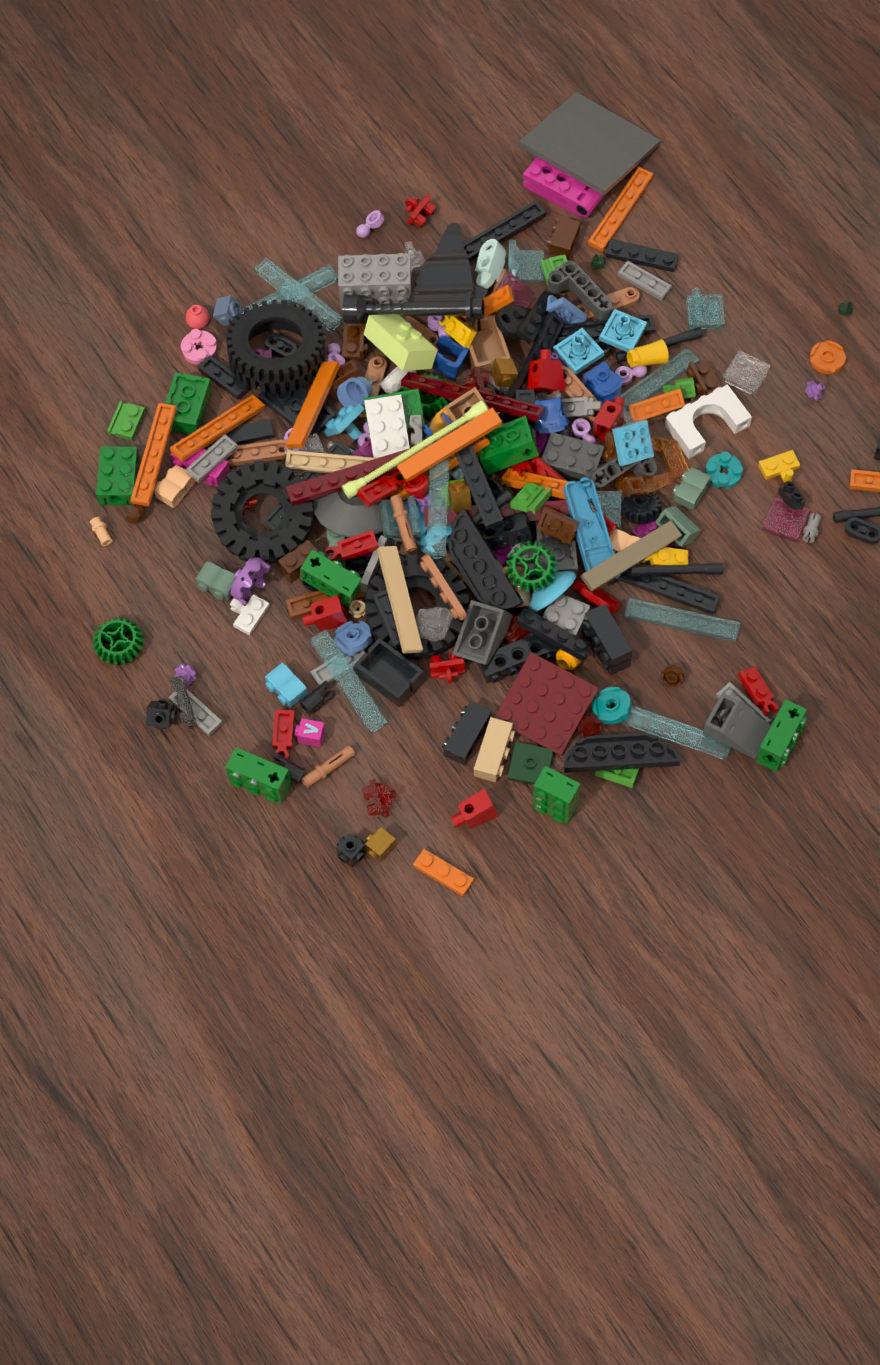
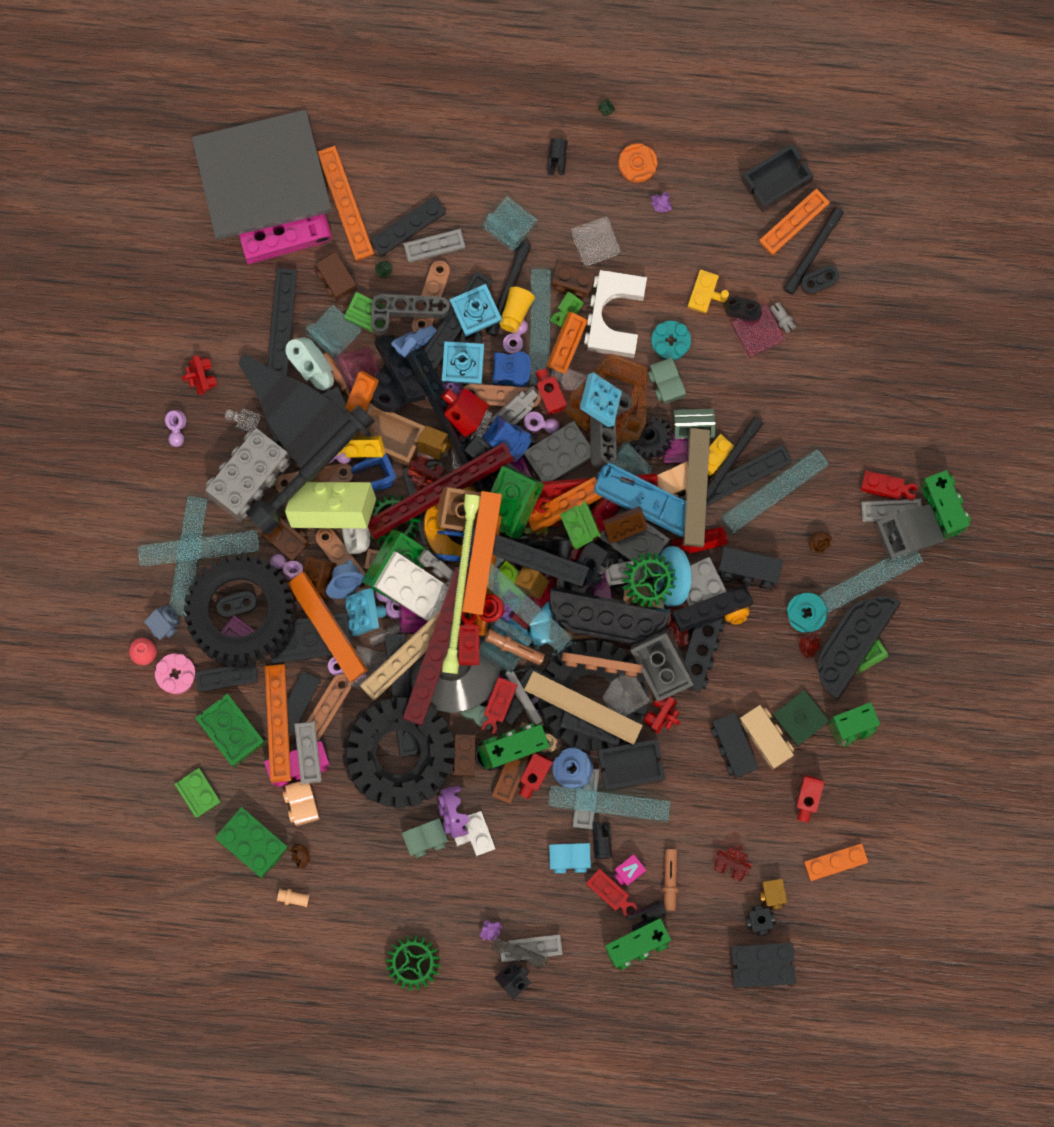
camera: 55 degrees left, 15 degrees up
(153, 454) = (263, 799): orange tile -> none
(318, 878) = (763, 965): none -> black piece
(546, 703) = (763, 663): dark red plate -> none
(781, 304) = (557, 154): none -> black hinge

